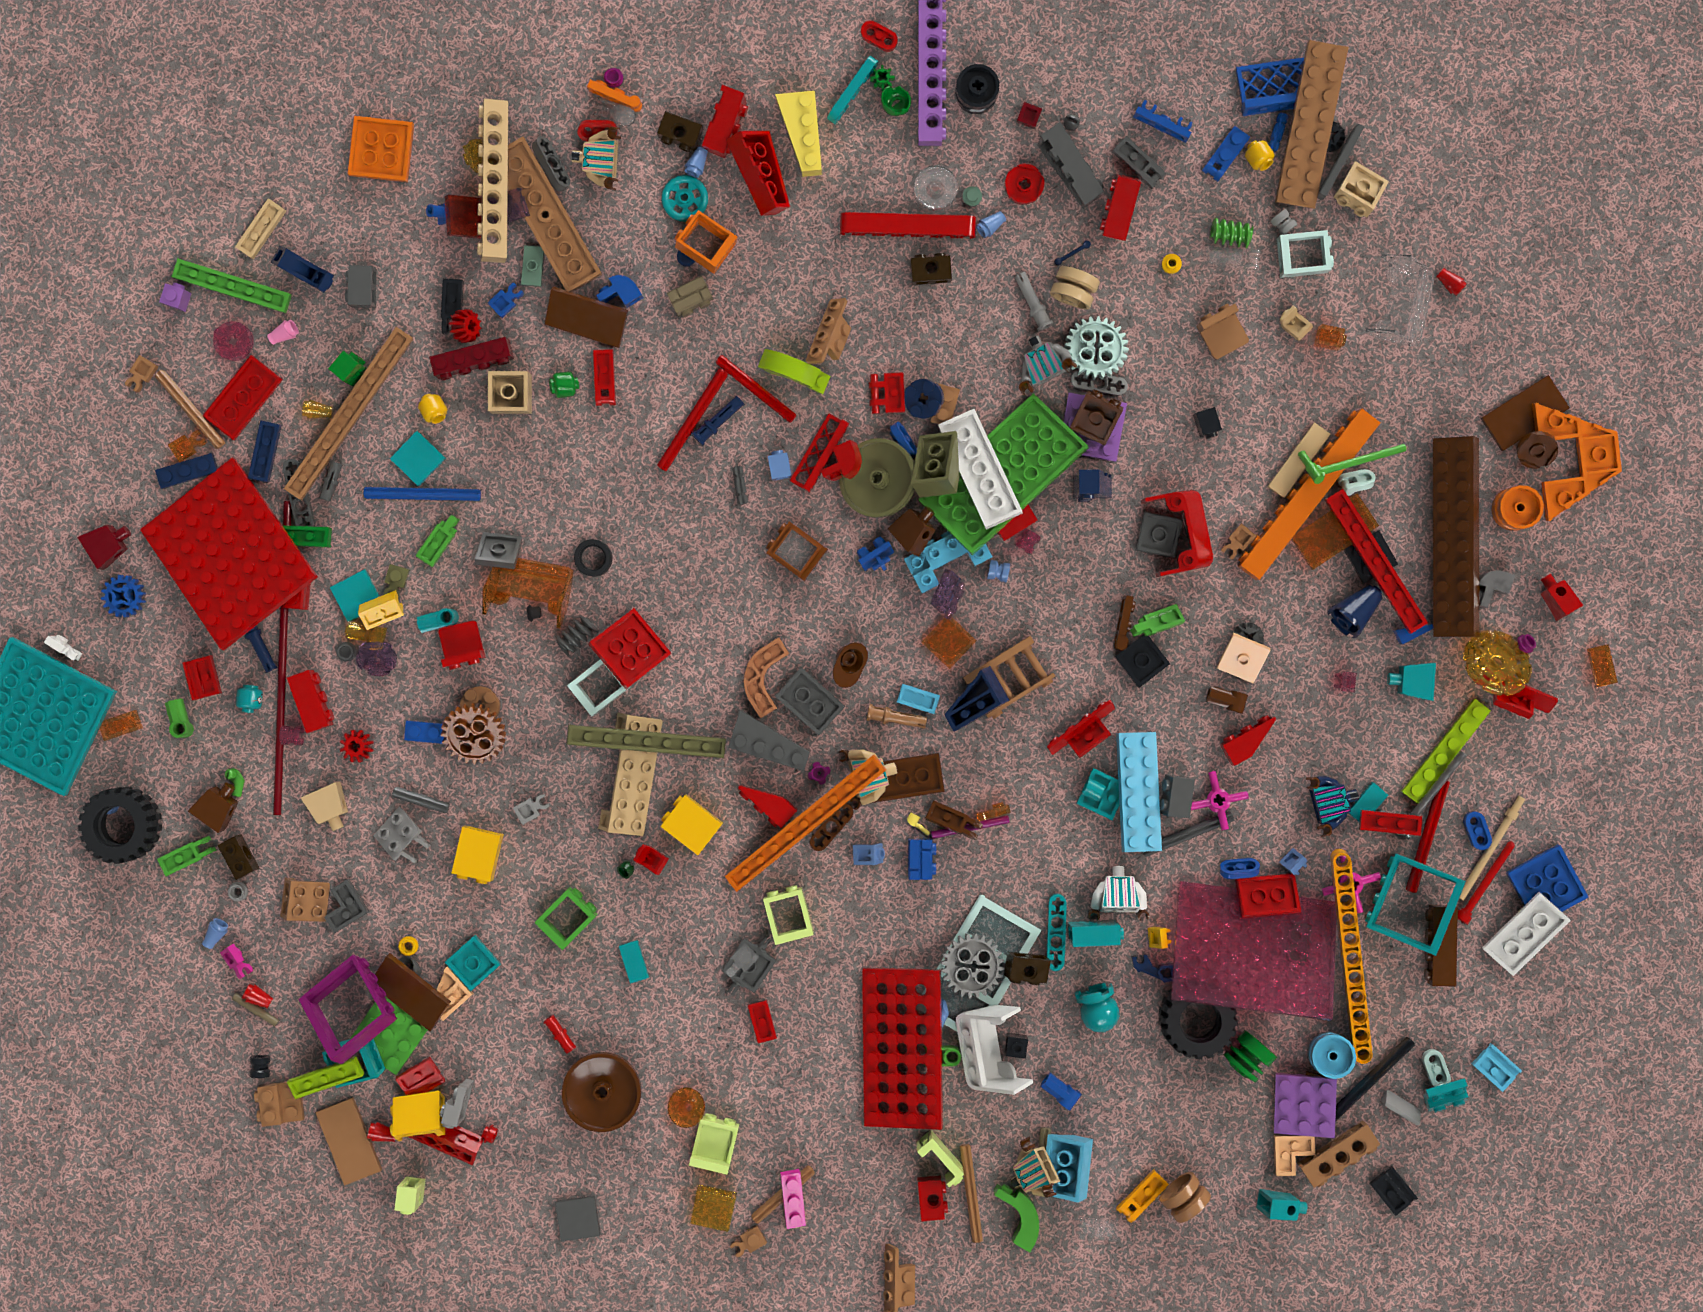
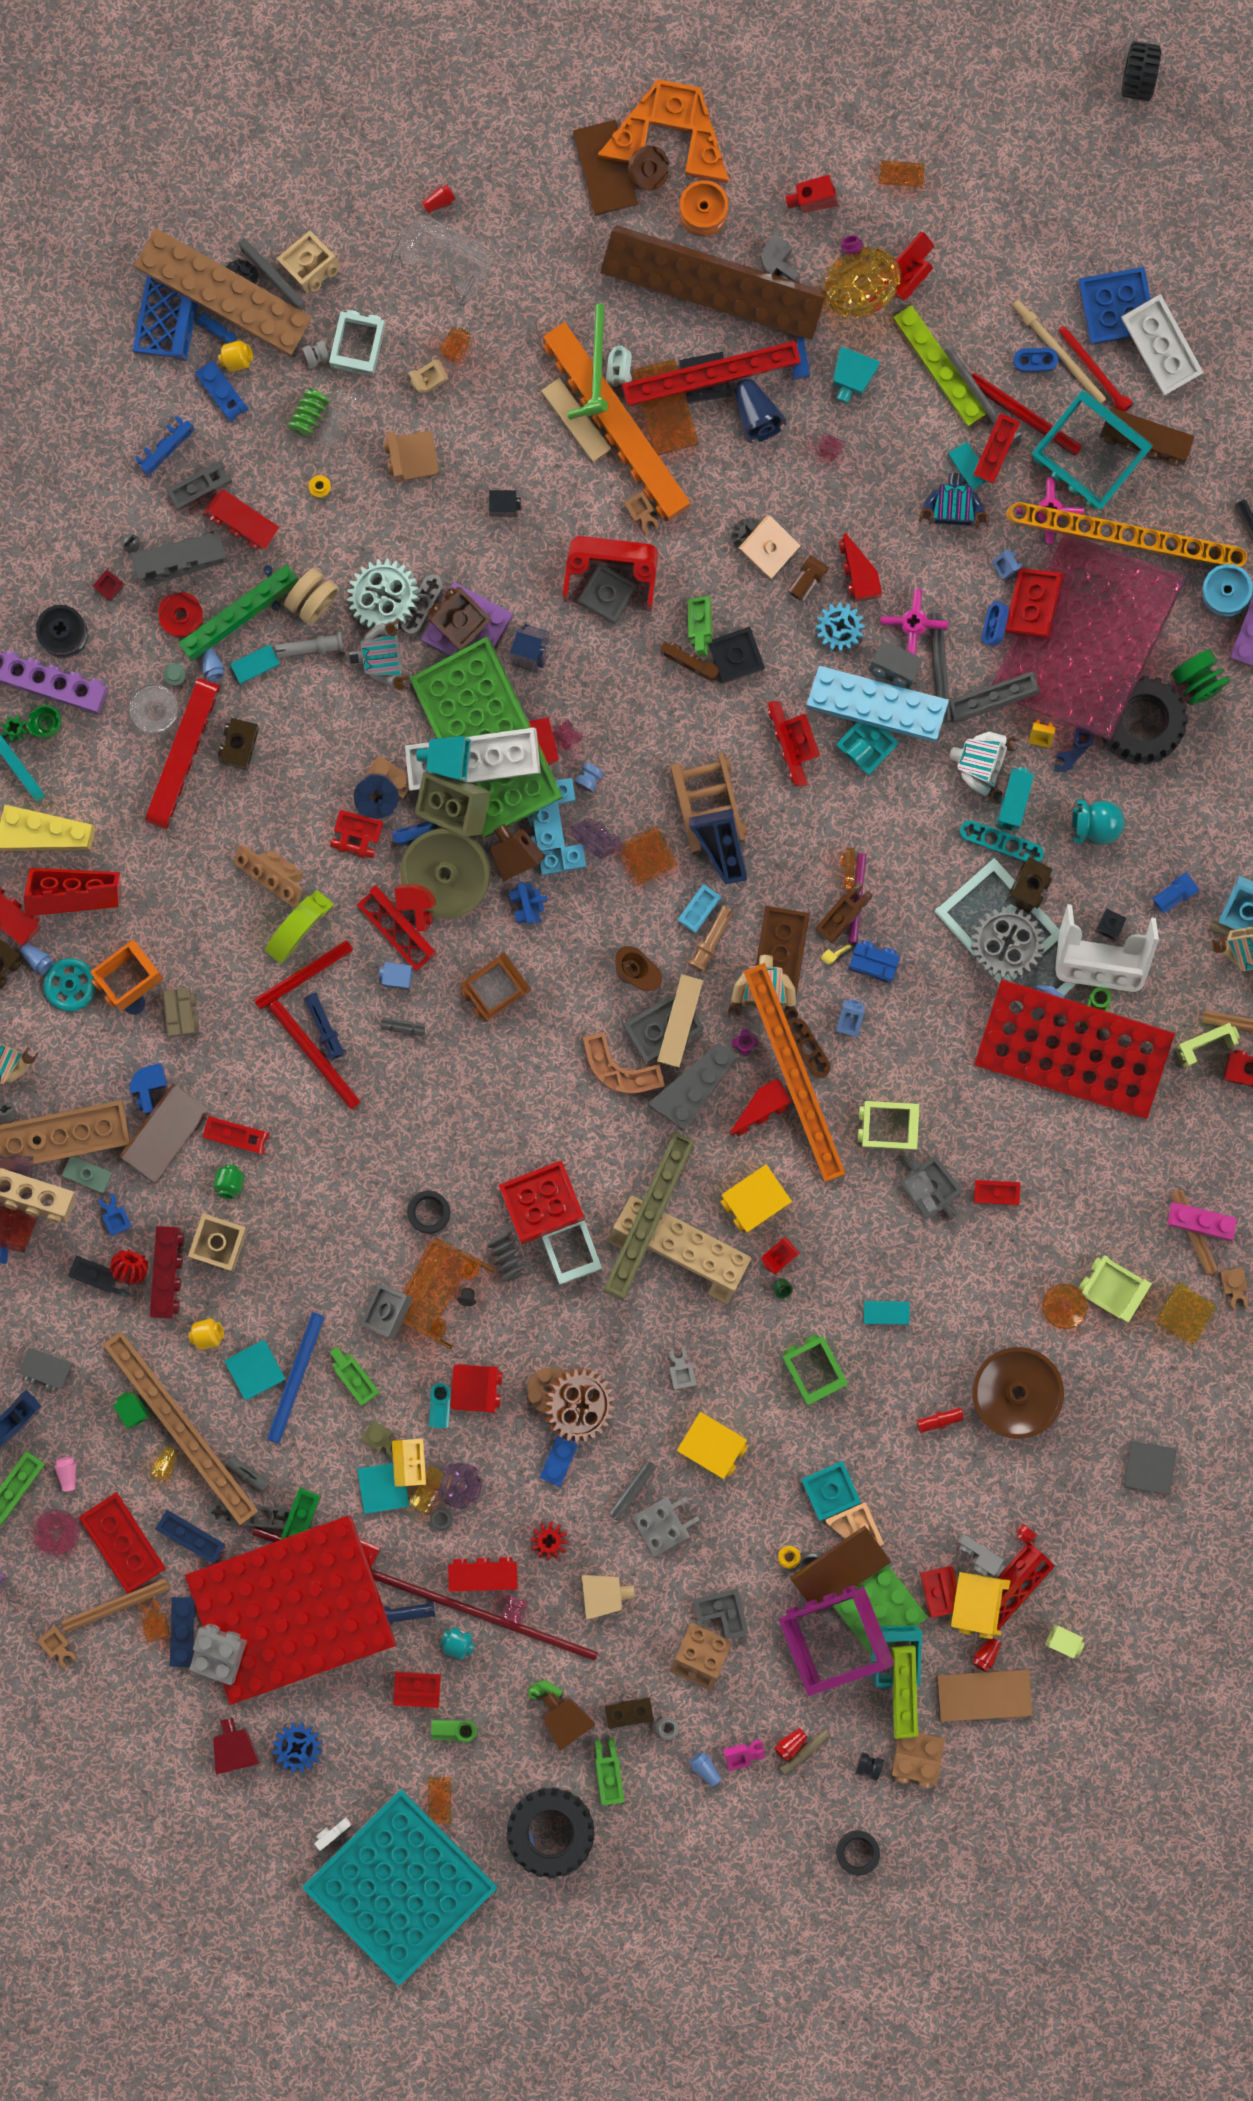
camera: 75 degrees left, 5 degrees down
(173, 1085) = (861, 1870): none -> black tyre
(174, 505) = (217, 1653): none -> light grey plate
(818, 714) = (680, 1021): none -> tan tile
(974, 446) = (447, 756): none -> teal torso
(1003, 260) = (255, 664): none -> teal tile
(1041, 231) = (239, 612): none -> green plate
(1177, 888) = (994, 697): none -> dark grey tile
(1193, 749) = (848, 630): none -> medium azure gear

